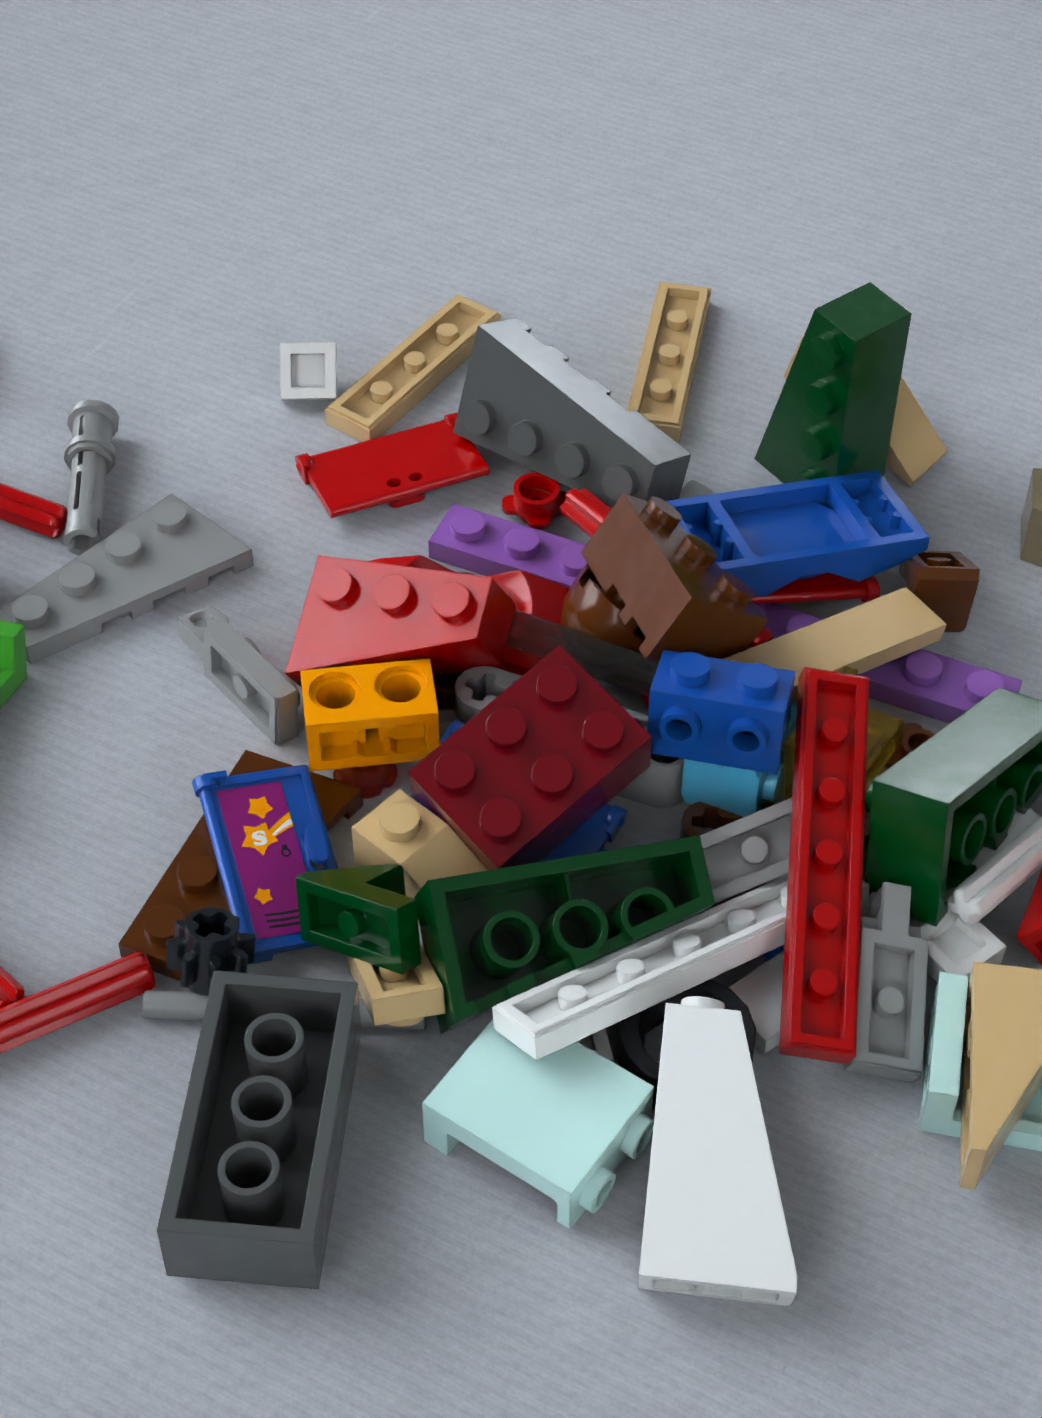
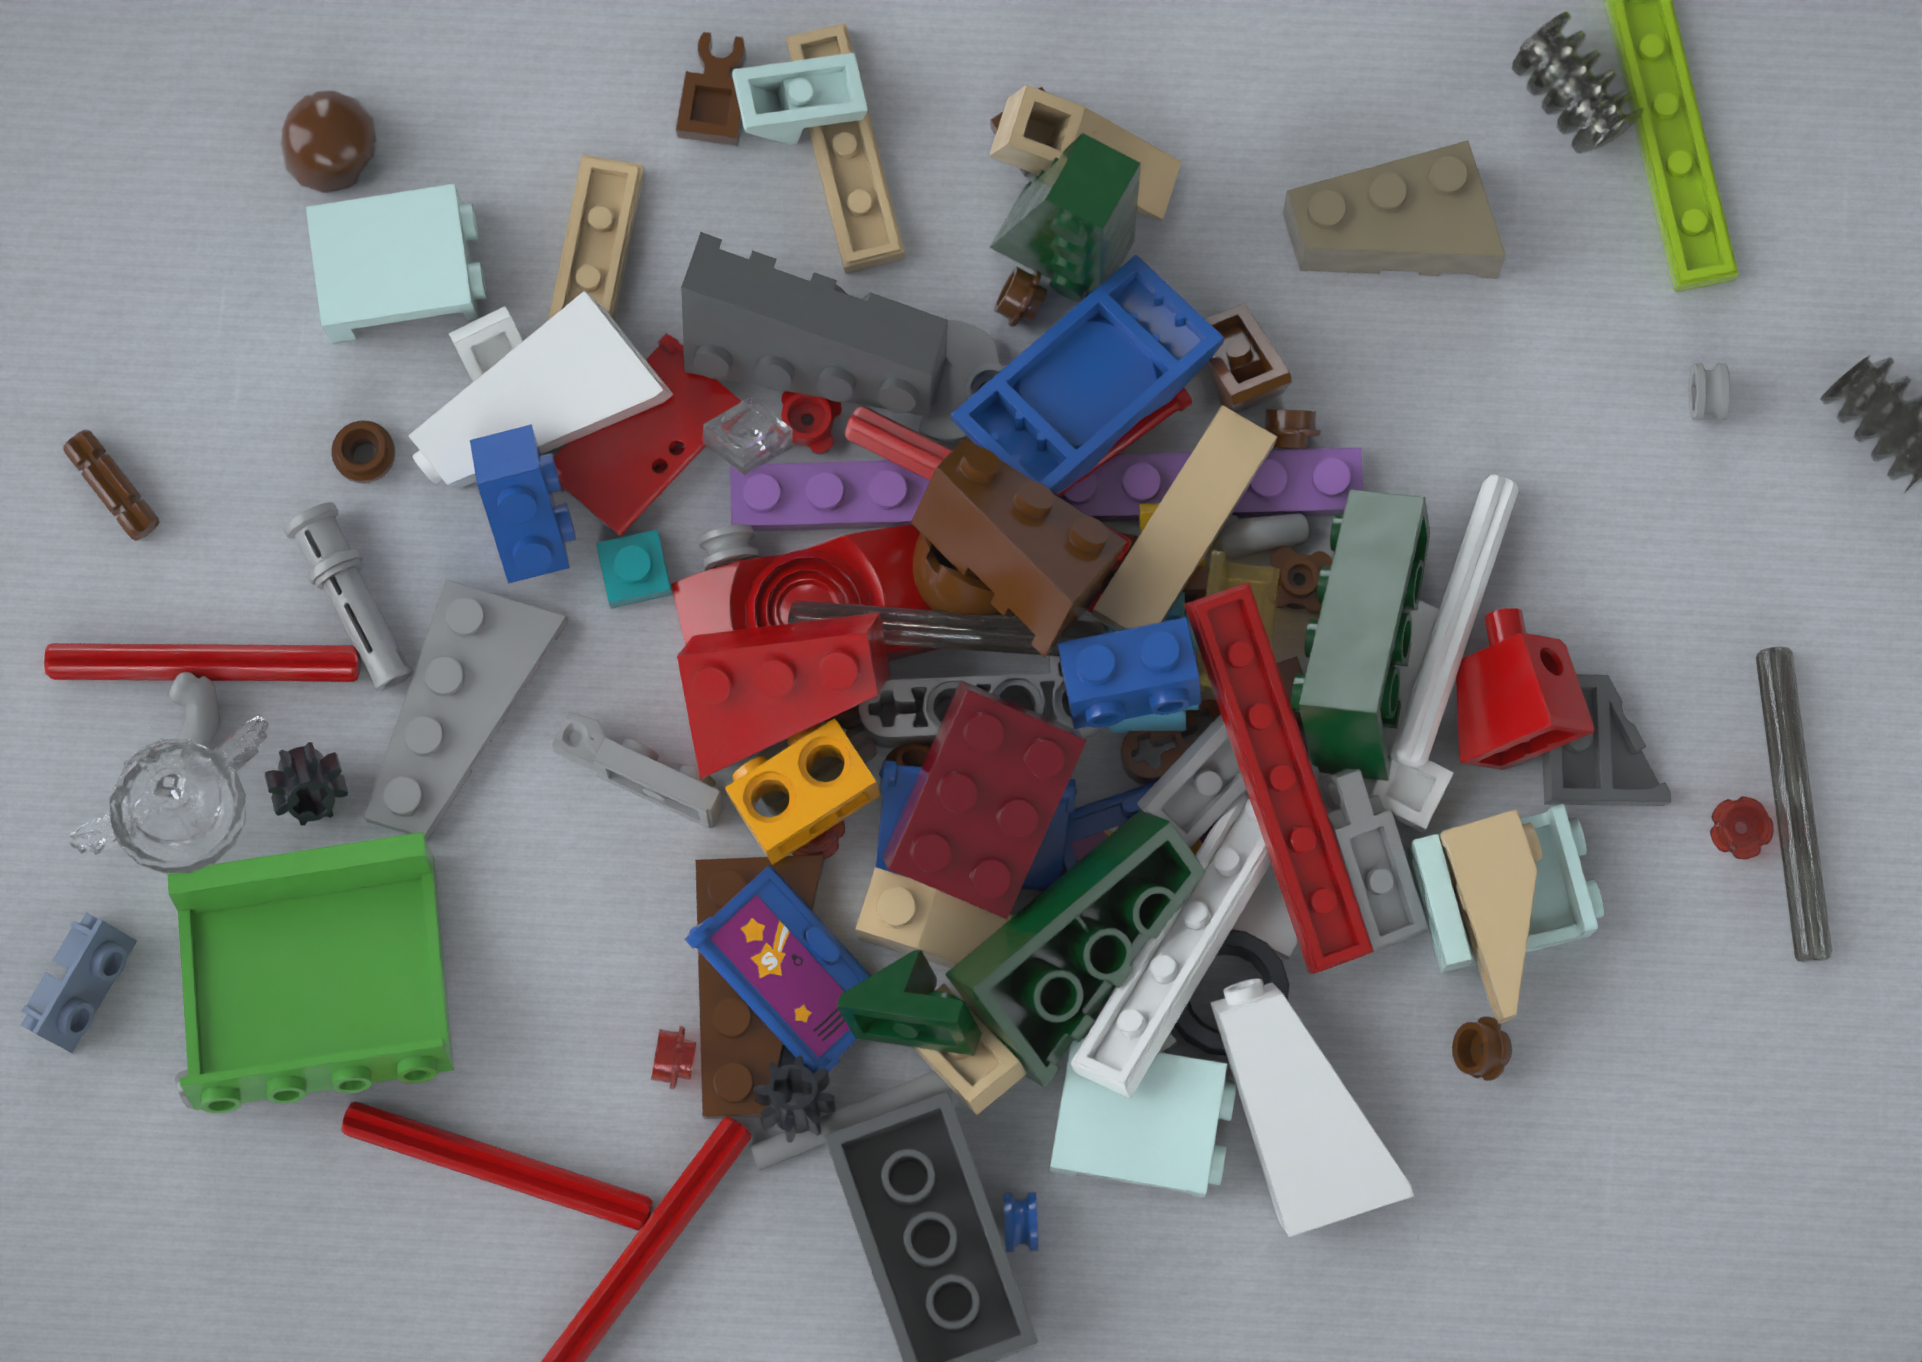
camera: 20 degrees left, 30 degrees up
(123, 887) = (673, 1057): none -> clear red plate
(165, 399) = (352, 437): none -> reddish brown plate
(261, 445) = (520, 503): none -> blue brick
(269, 293) = (394, 259): none -> light aqua panel
(271, 227) = (327, 141): none -> reddish brown hair
(321, 399) = (561, 379): none -> white slope
(328, 537) = (634, 568): none -> teal plate
(366, 1158) = (1020, 1222): none -> blue bush
(418, 539) = (727, 545): none -> light grey bush
(478, 484) = (747, 436): none -> clear plate
(581, 297) = (709, 100): none -> reddish brown plate
(637, 294) = (799, 94): none -> light aqua slope
(762, 473) = (1021, 296): none -> reddish brown plate
(903, 703) = (1258, 534): none -> light grey arm
(934, 1201) = (1482, 1048): none -> reddish brown plate
(964, 641) = (1291, 427): none -> reddish brown plate

